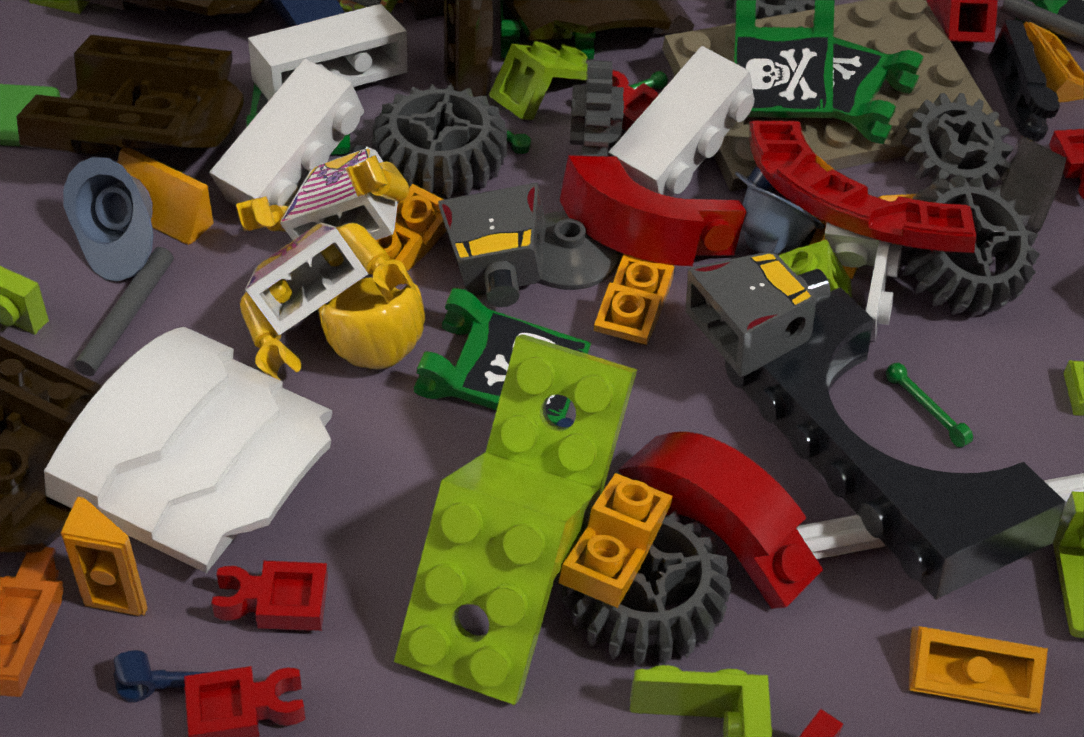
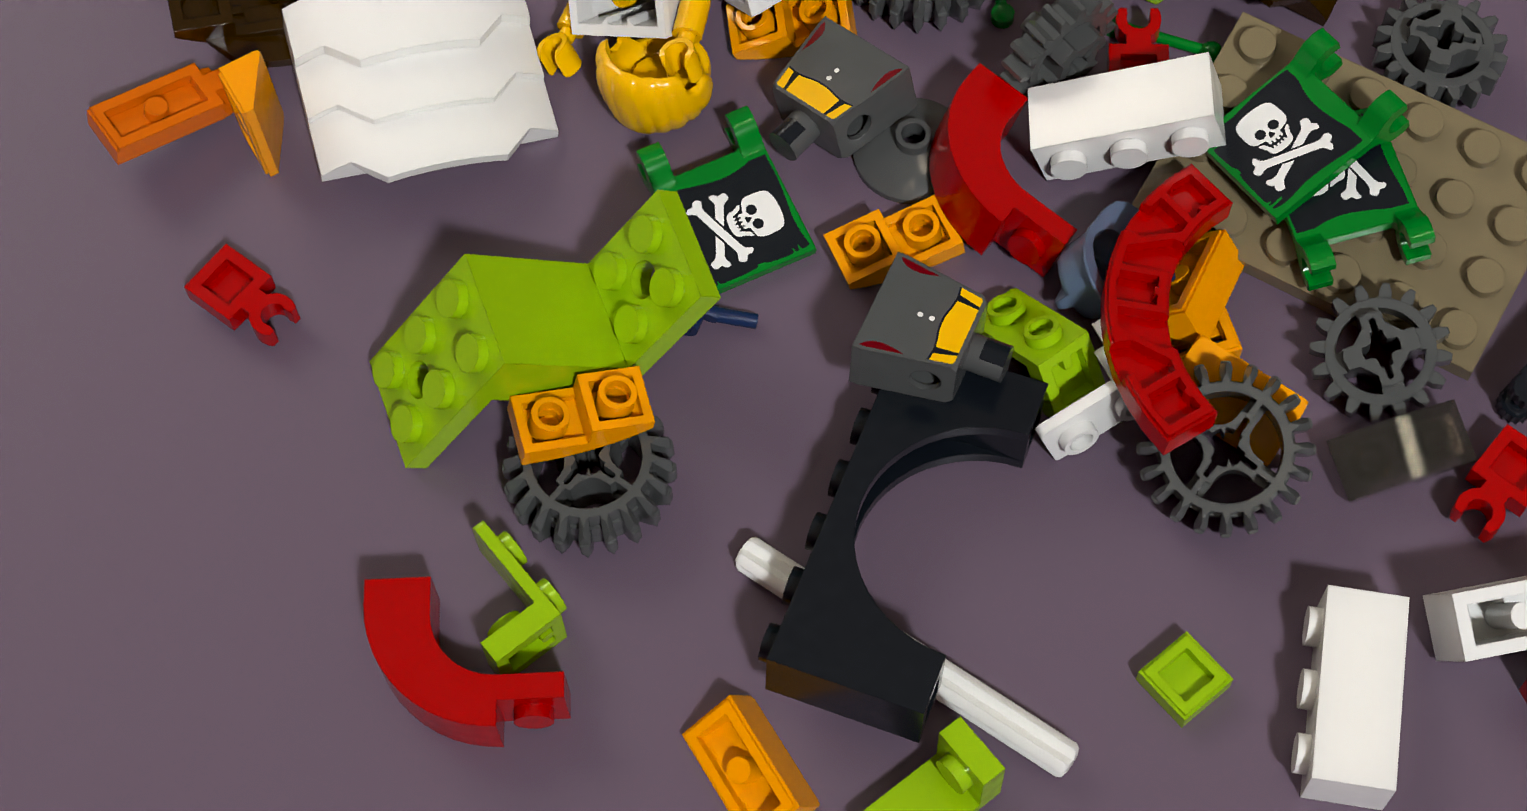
camera: 55 degrees right, 15 degrees up
(137, 681) = (208, 219): dark blue hand -> none
(283, 596) = (351, 245): red plate -> none
(736, 503) = (705, 477): red arch -> none
(959, 433) = (1028, 503): green hinge -> none

